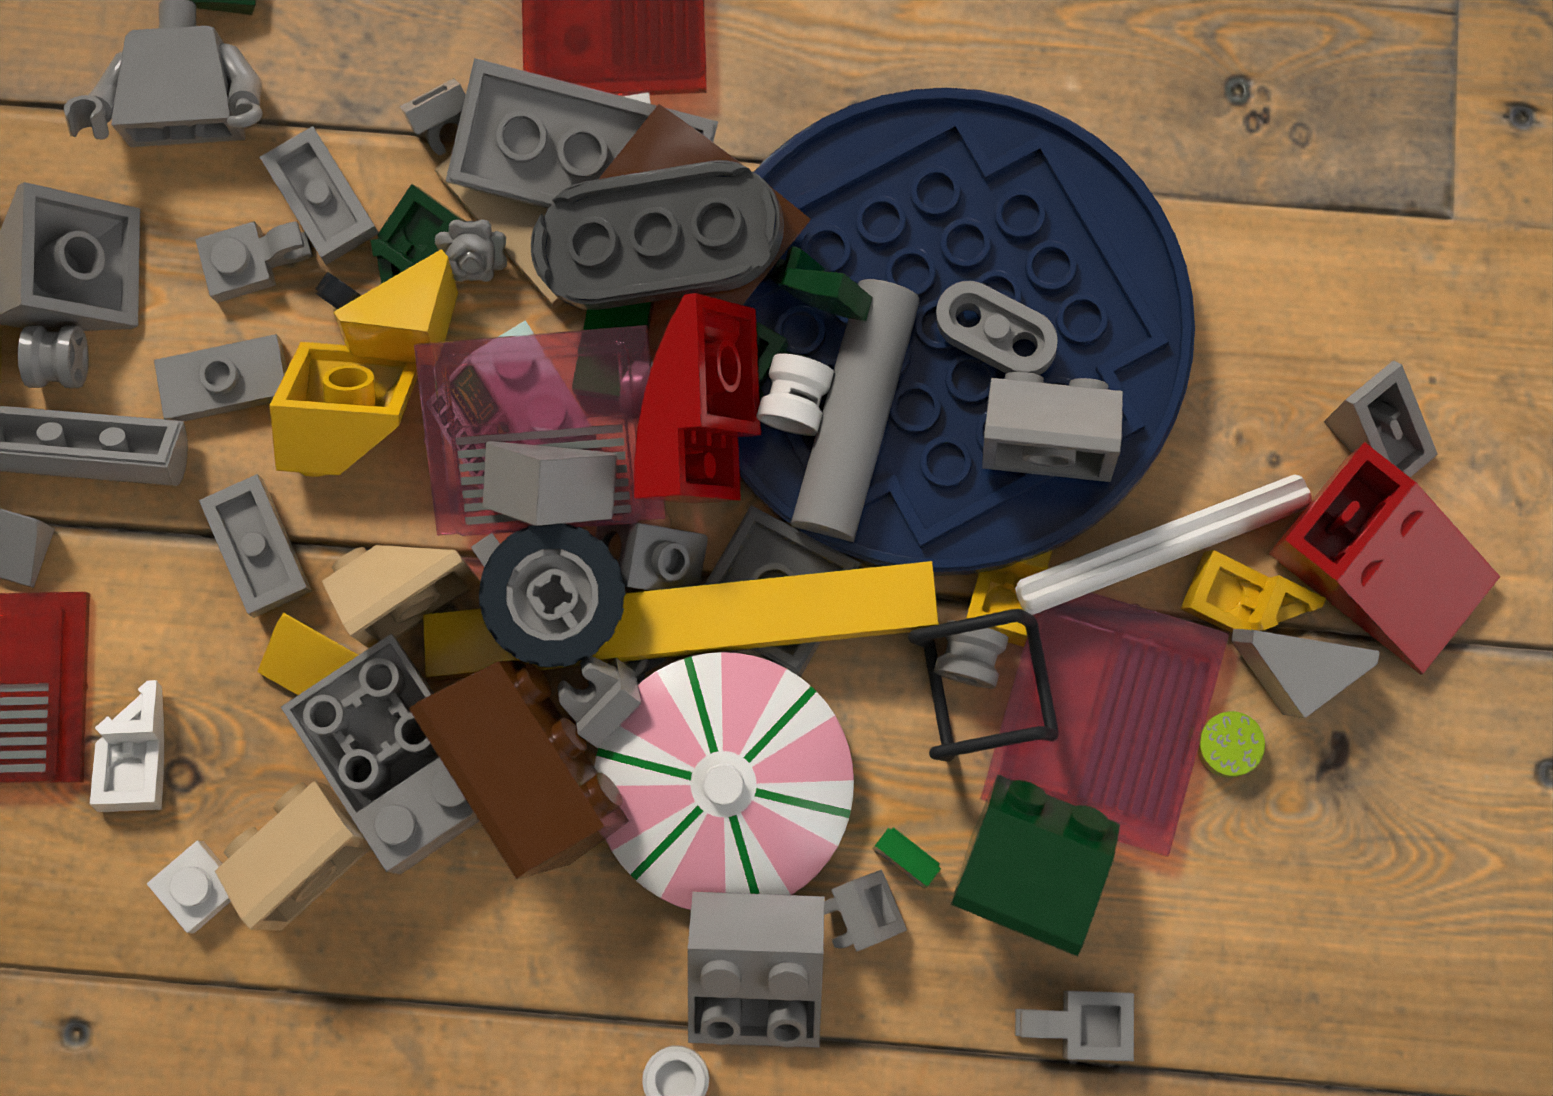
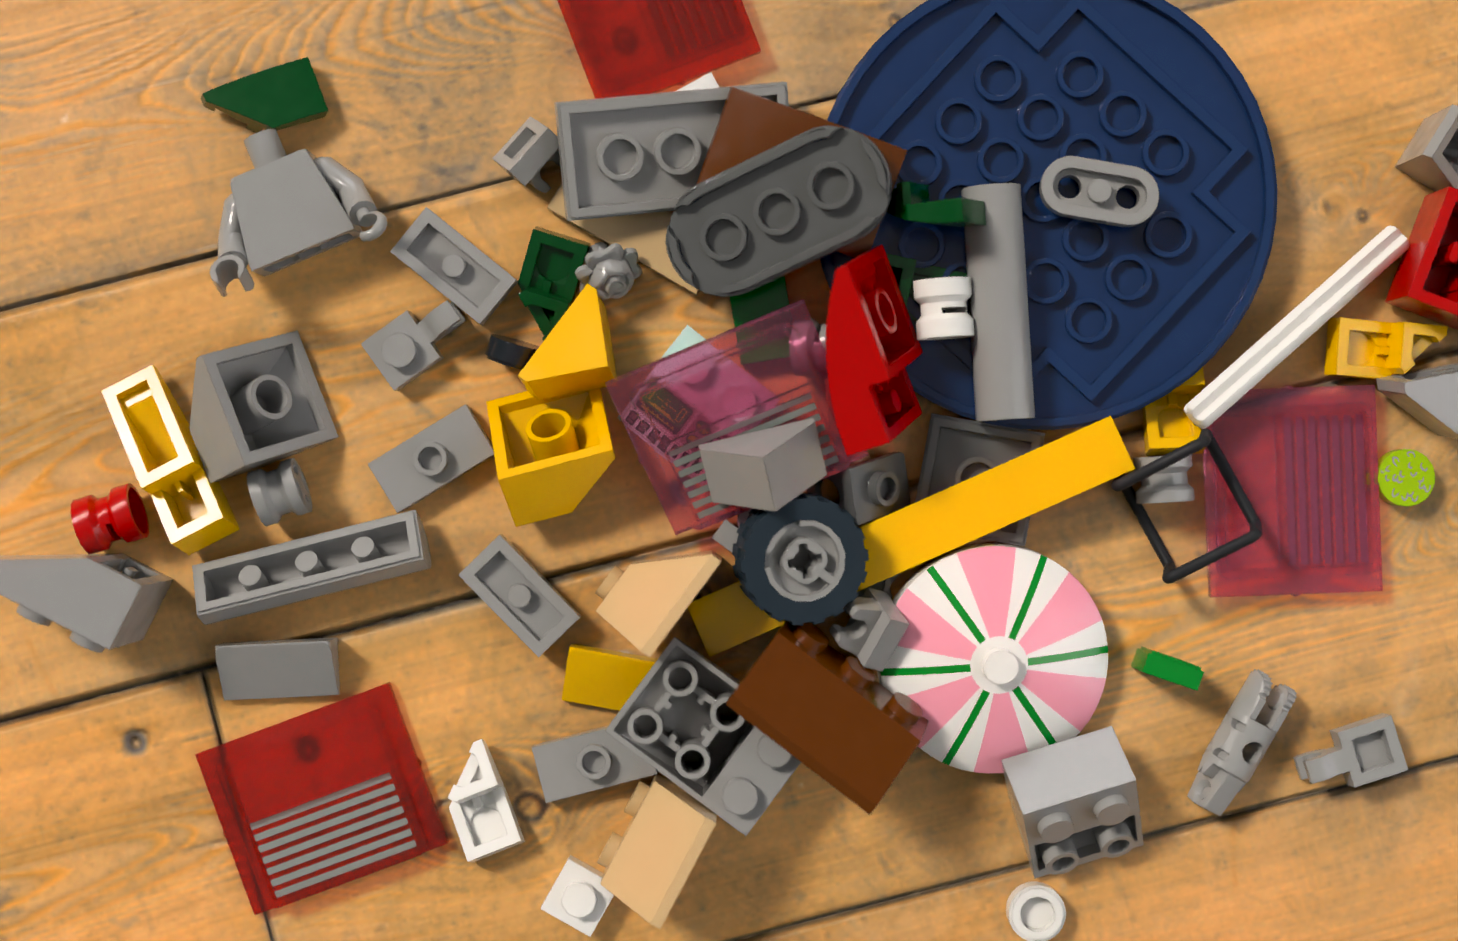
camera: 25 degrees left, 10 degrees up
(254, 747) = (585, 764): none -> light grey plate
(866, 910) = (1149, 723): light grey tile -> none
(936, 987) = (1240, 742): none -> light grey hinge
(1037, 864) = (1282, 642): dark green slope -> none
(1053, 427) = (1180, 264): light grey slope -> none

